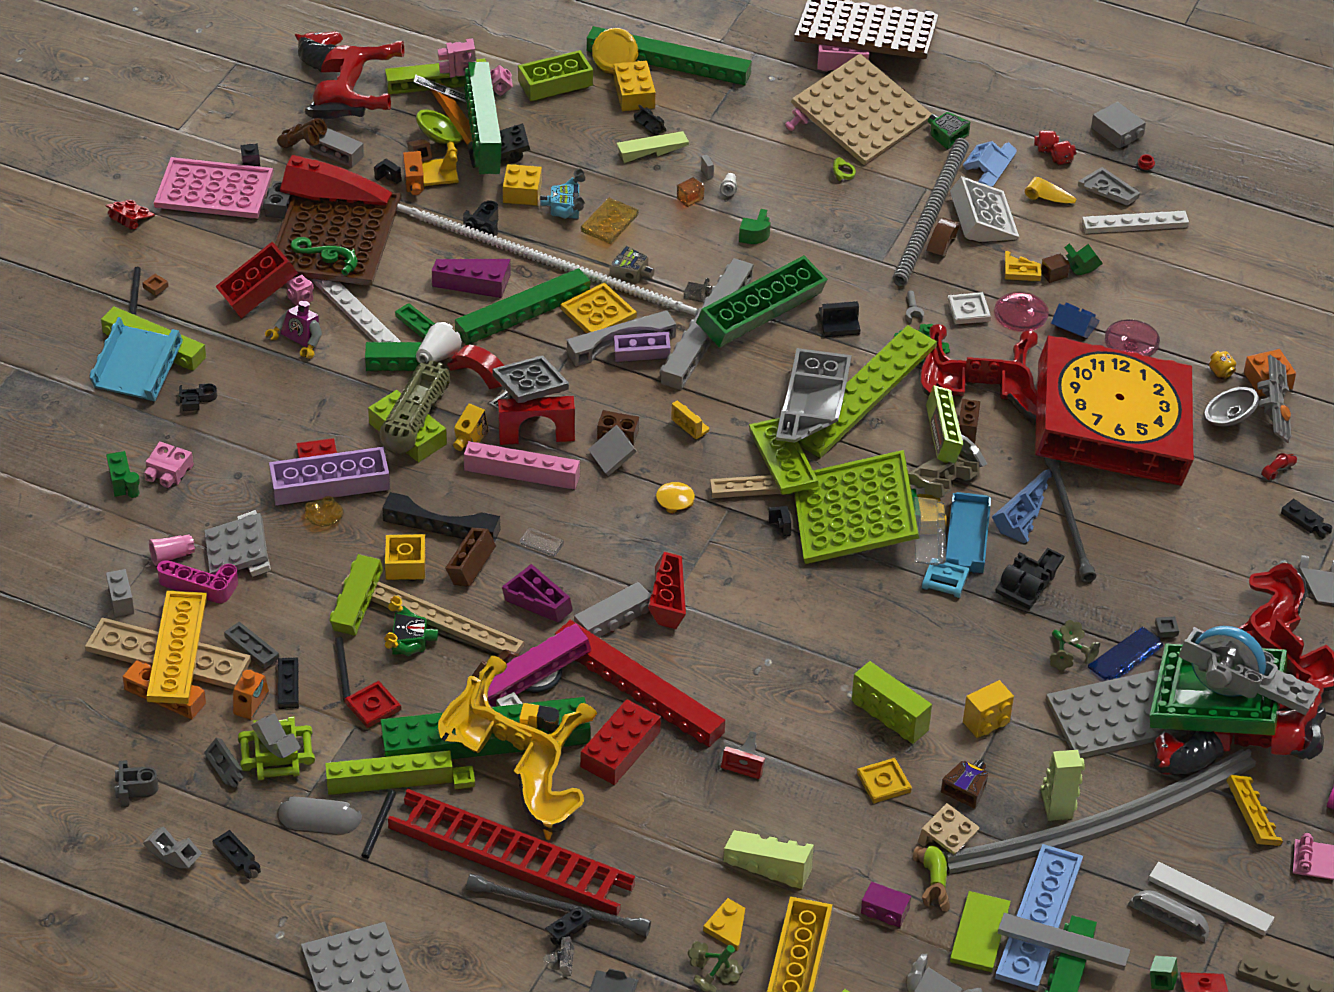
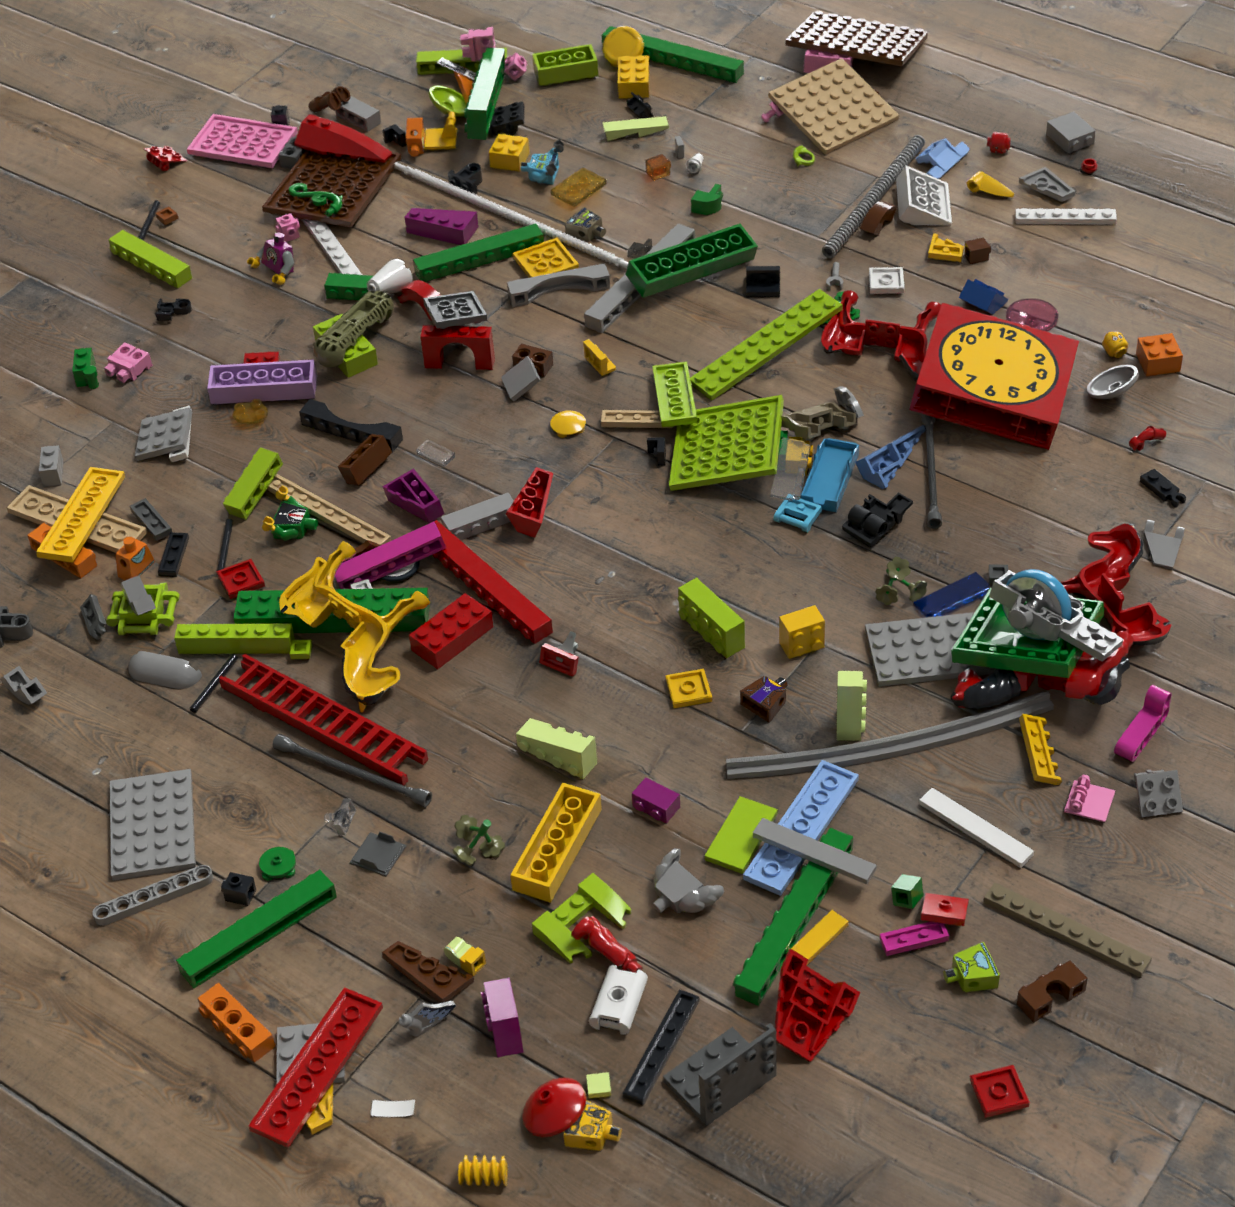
camera: 15 degrees right, 0 degrees up
(135, 361) = (126, 275): medium azure panel -> none
(170, 548) = (107, 432): bright pink plant -> none
(187, 579) = (136, 467): dark pink beam -> none
(236, 853) = (78, 696): black plate -> none
(256, 279) = (249, 215): red brick -> none
(337, 97) = (374, 38): red animal -> none
(405, 557) = (307, 455): yellow brick -> none
(414, 319) = (378, 255): green plate -> none
(423, 146) = (429, 119): reddish brown brick -> none
(470, 427) = (398, 350): yellow torso -> none
(521, 465) = (436, 385): bright pink brick -> none
(540, 717) = (376, 600): leg -> none
(569, 923) = (361, 785): black hinge -> none
(641, 346) = (573, 292): lavender brick -> none
(727, 923) = (503, 802): yellow wing -> none
(813, 393) = (714, 342): light grey slope -> none
(936, 863) = (715, 769): piece -> none
(944, 424) = (829, 377): lime brick -> none
(948, 128) = (910, 125): green torso -> none
(948, 829) = (733, 737): tan bracket -> none
(969, 418) = (858, 376): reddish brown brick -> none
(1021, 311) = (936, 286): clear pink dish -> none
(1063, 152) = (1011, 153): red head -> none
(1082, 261) = (1004, 246): green brick -> none
(1171, 913) = (932, 837): light grey brick -> none
(1274, 403) = (1156, 375): light grey piece -> none

